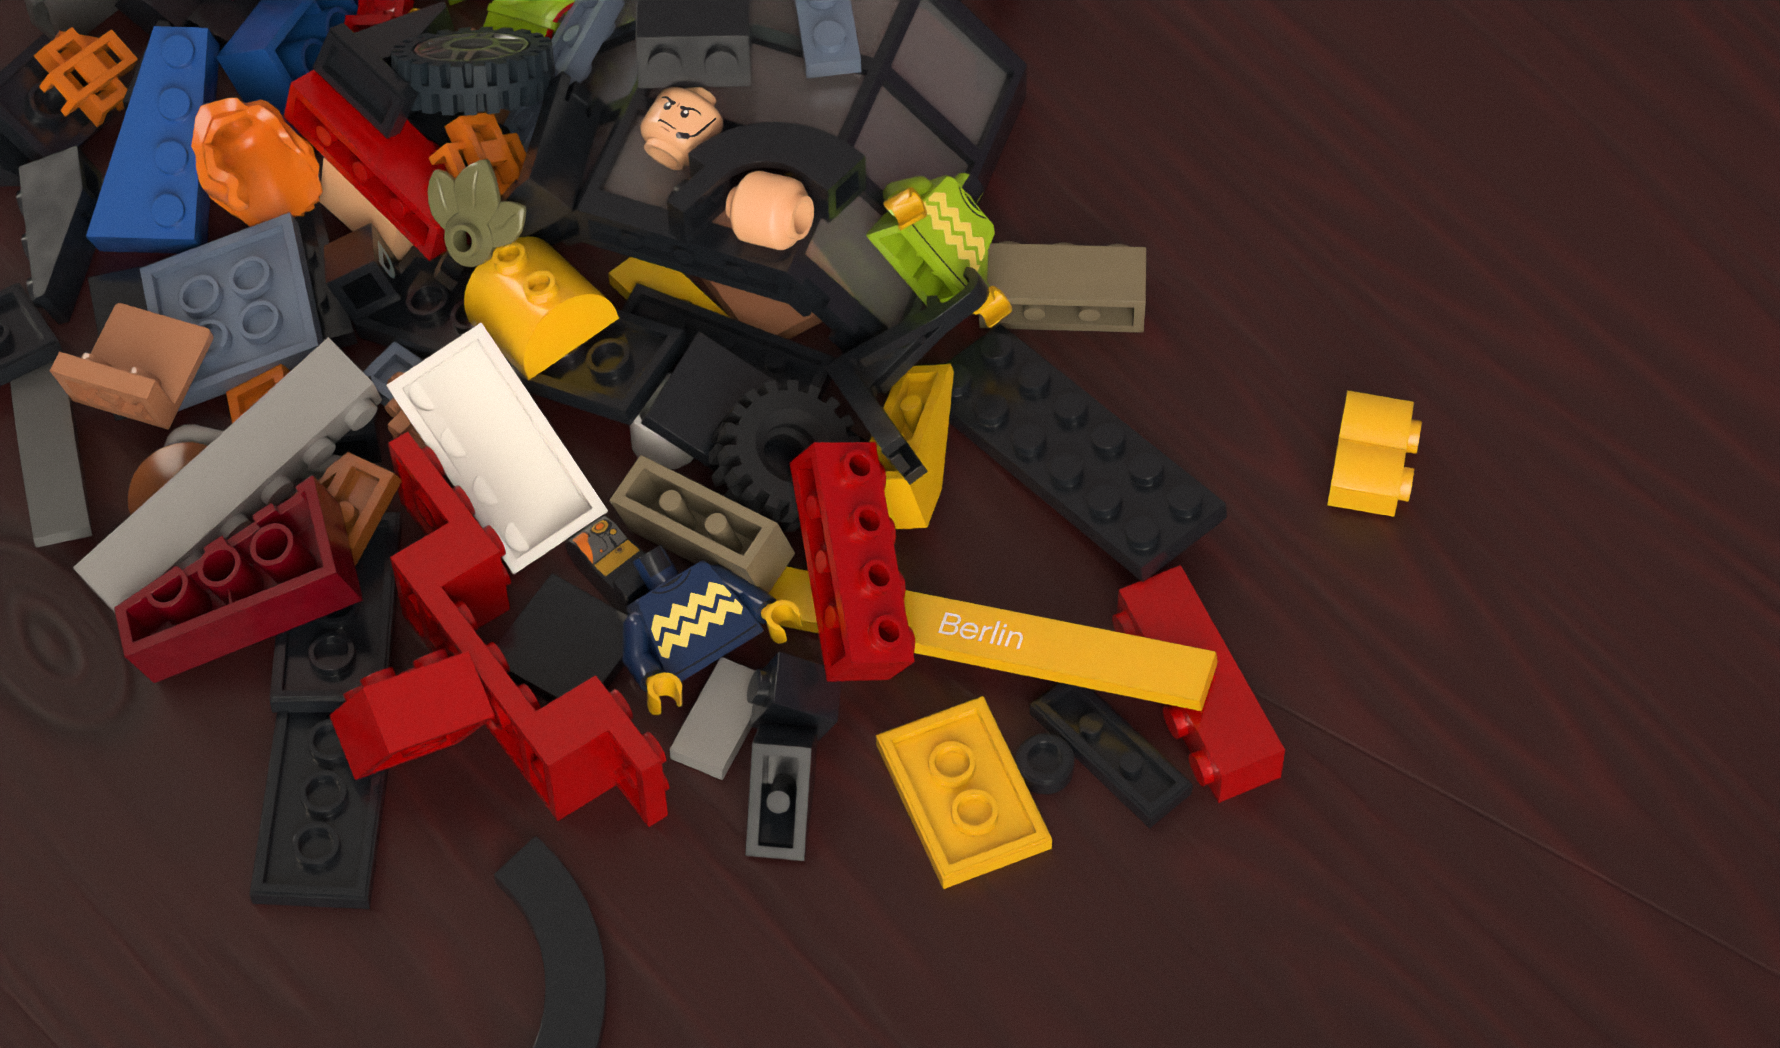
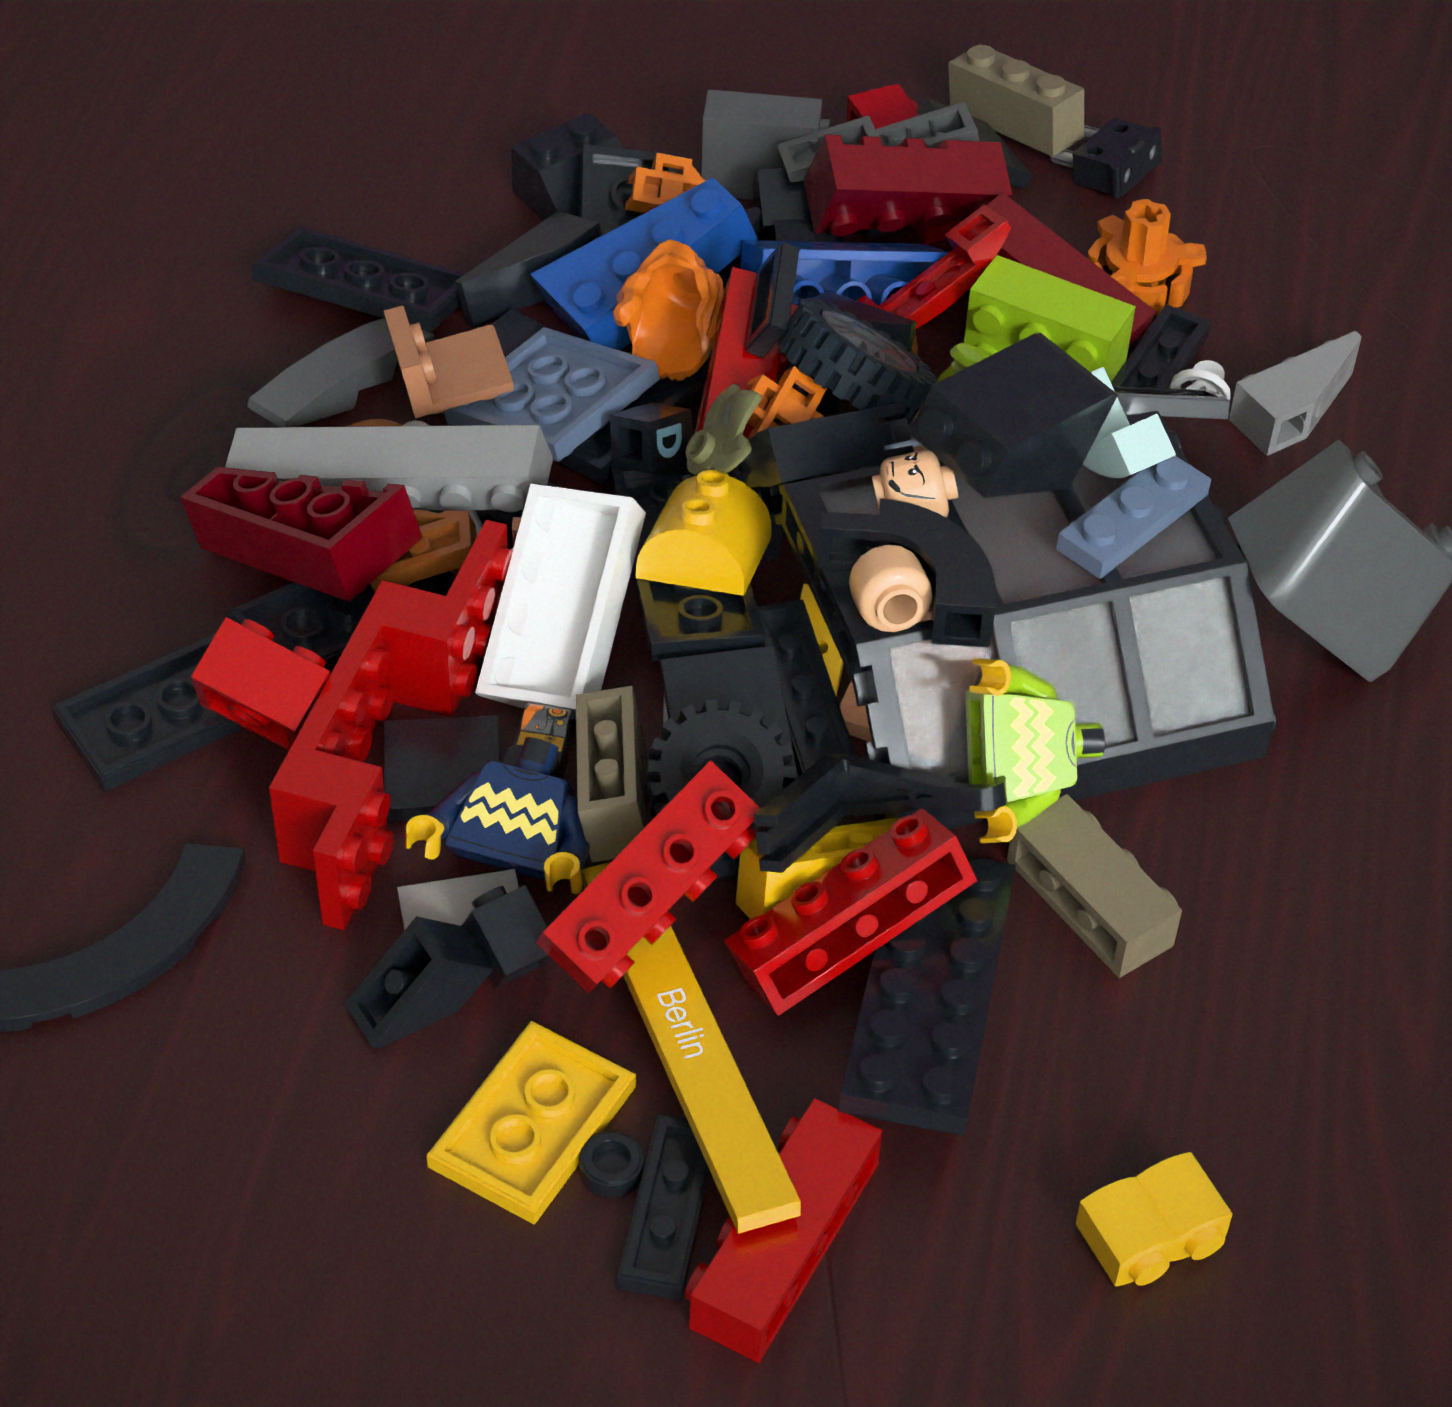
camera: 50 degrees right, 10 degrees down
(976, 454) = (850, 910): none -> red brick

